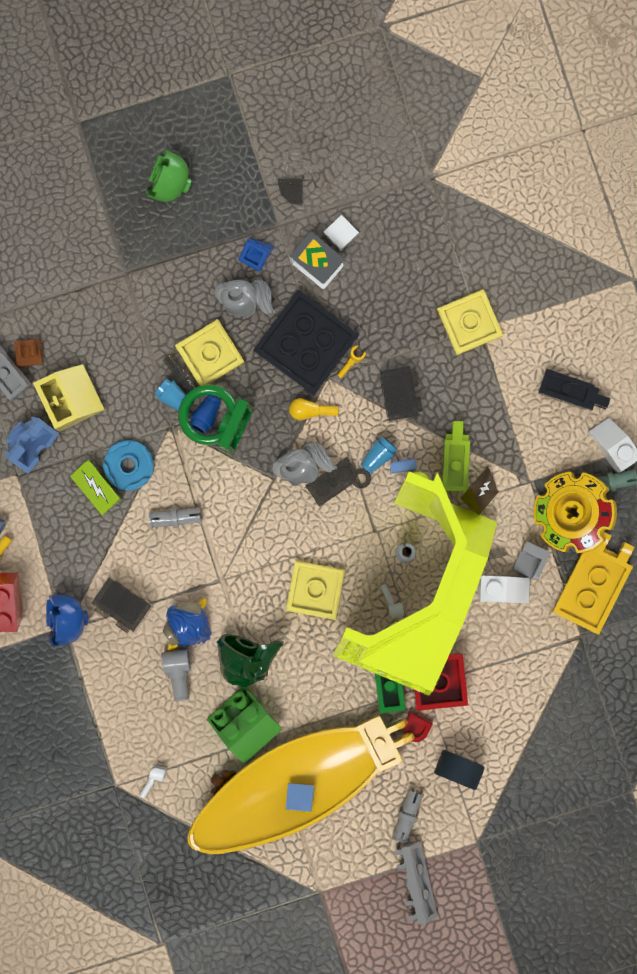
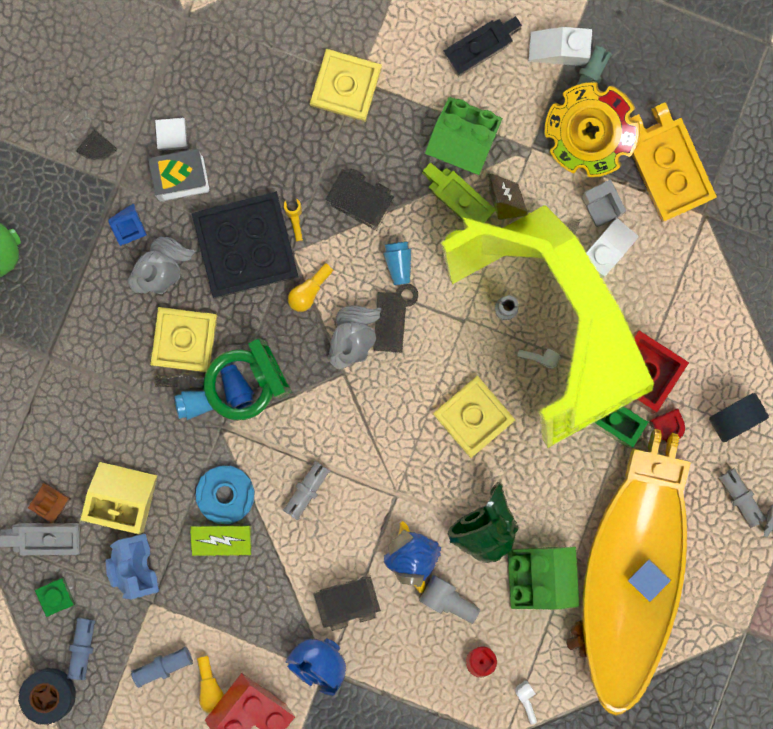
camera: 55 degrees left, 0 degrees up
(154, 728) = (481, 662): none -> red tile
(402, 466) = (426, 248): medium blue tile -> none
(500, 429) = (463, 135): none -> bright green slope

